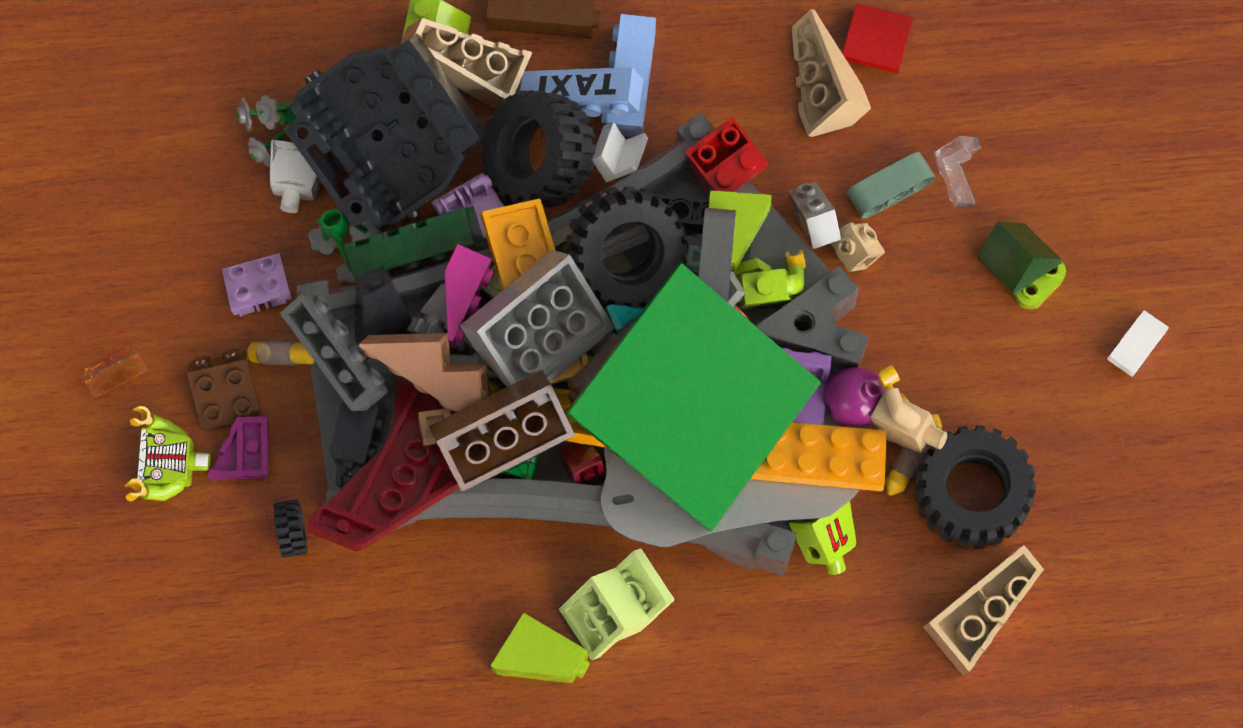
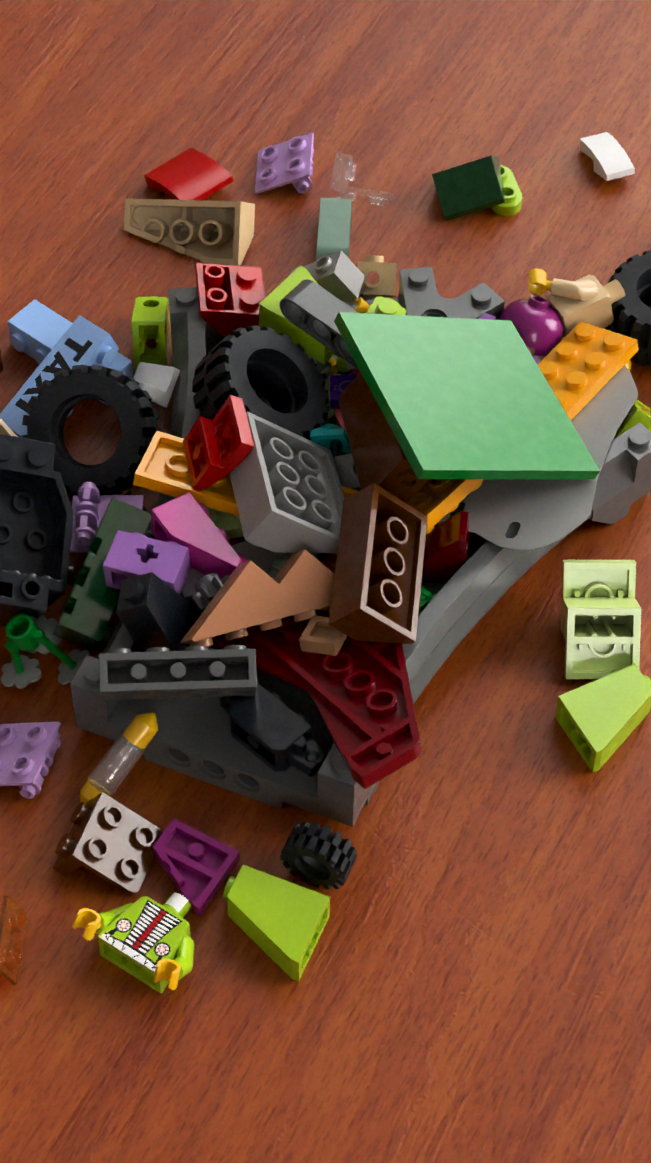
camera: 60 degrees left, 20 degrees down
(233, 531) = (278, 916): none -> lime slope
(408, 256) = (137, 554): none -> medium lavender brick
(538, 251) = (218, 445): none -> red slope
(681, 110) = (151, 321): none -> lime torso
(944, 100) = (286, 164): none -> lavender hinge

